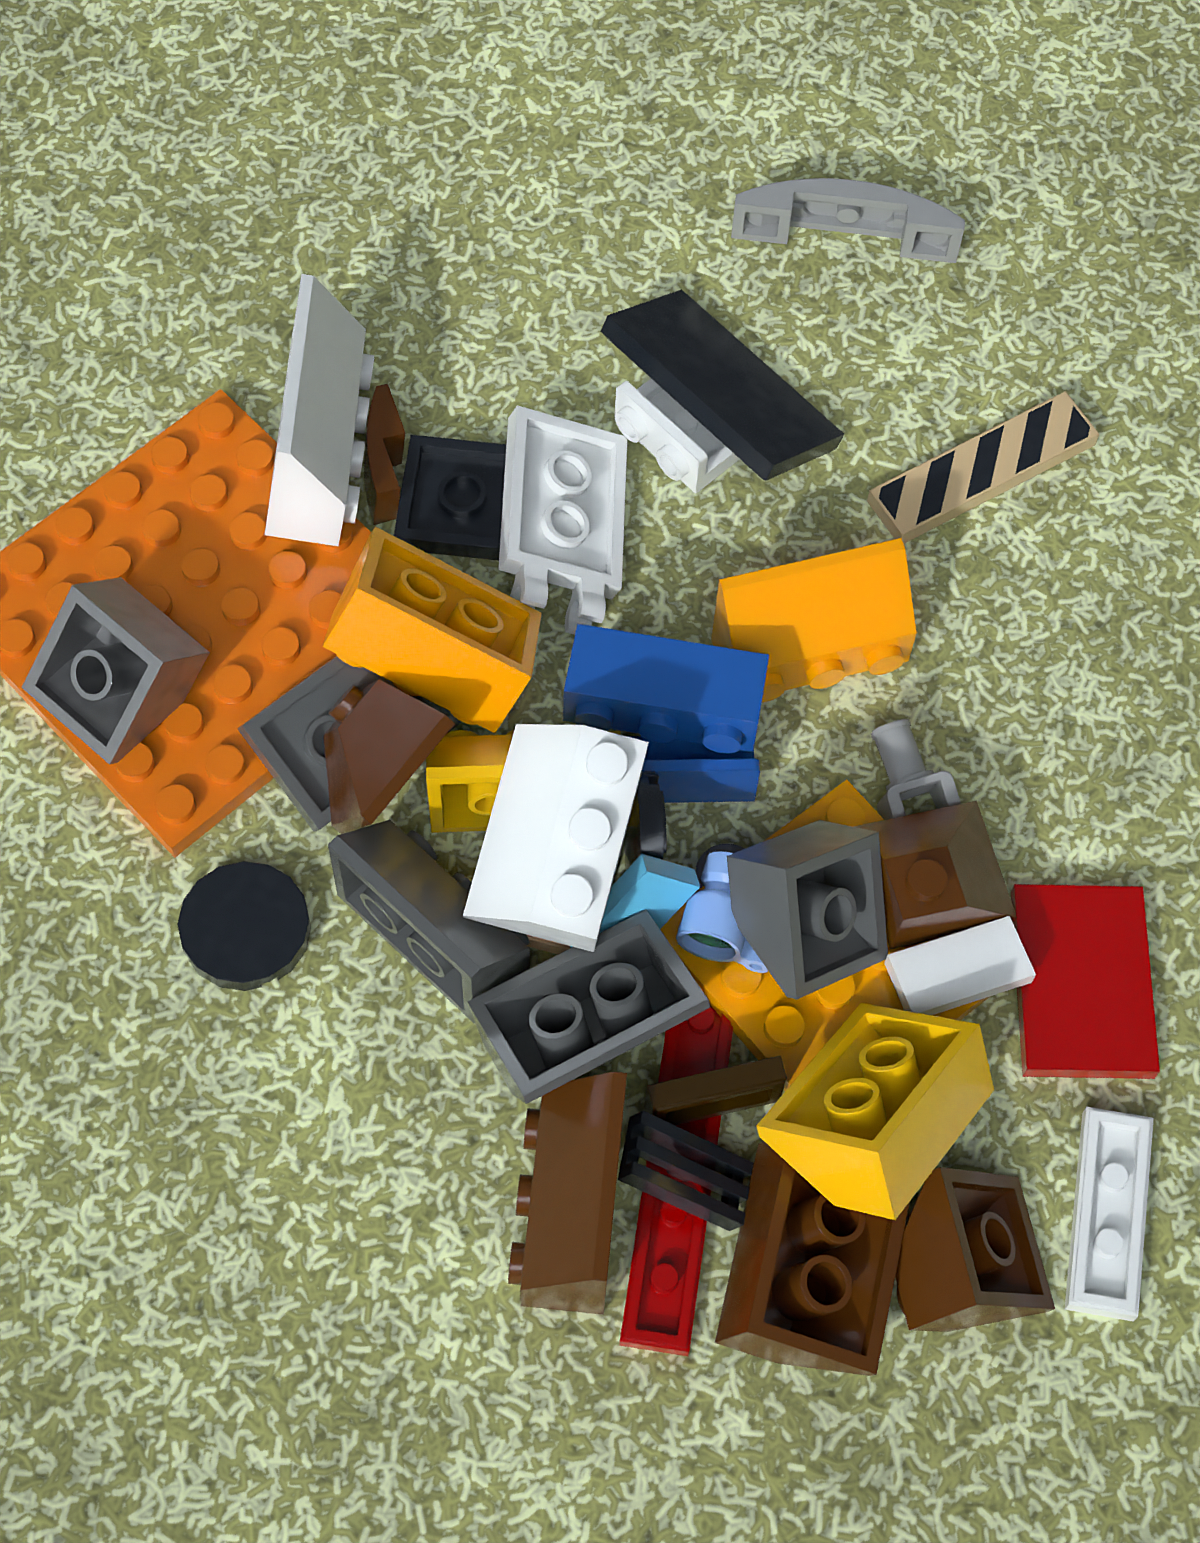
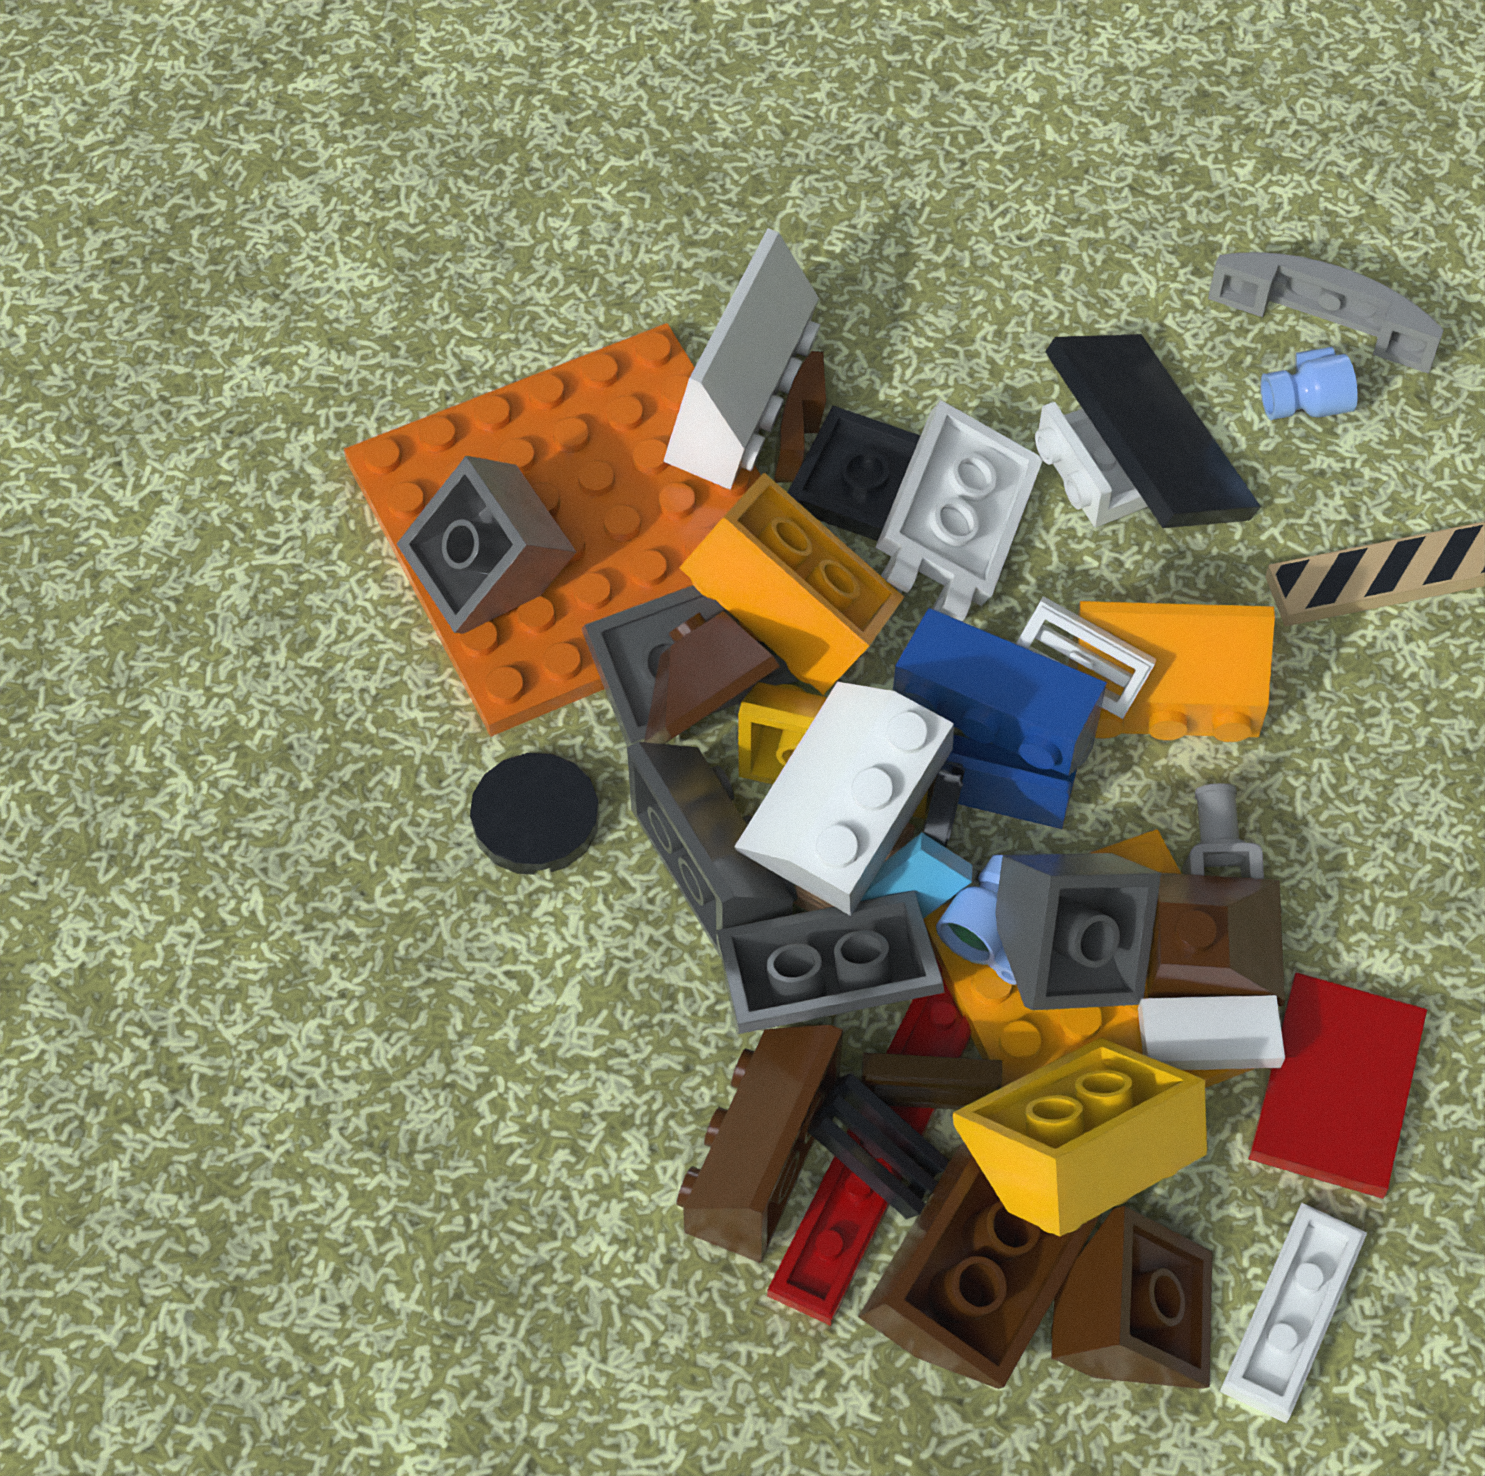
camera: 20 degrees right, 5 degrees down
(744, 611) = (1096, 637): none -> white tile
(864, 301) = (1321, 386): none -> light blue piece

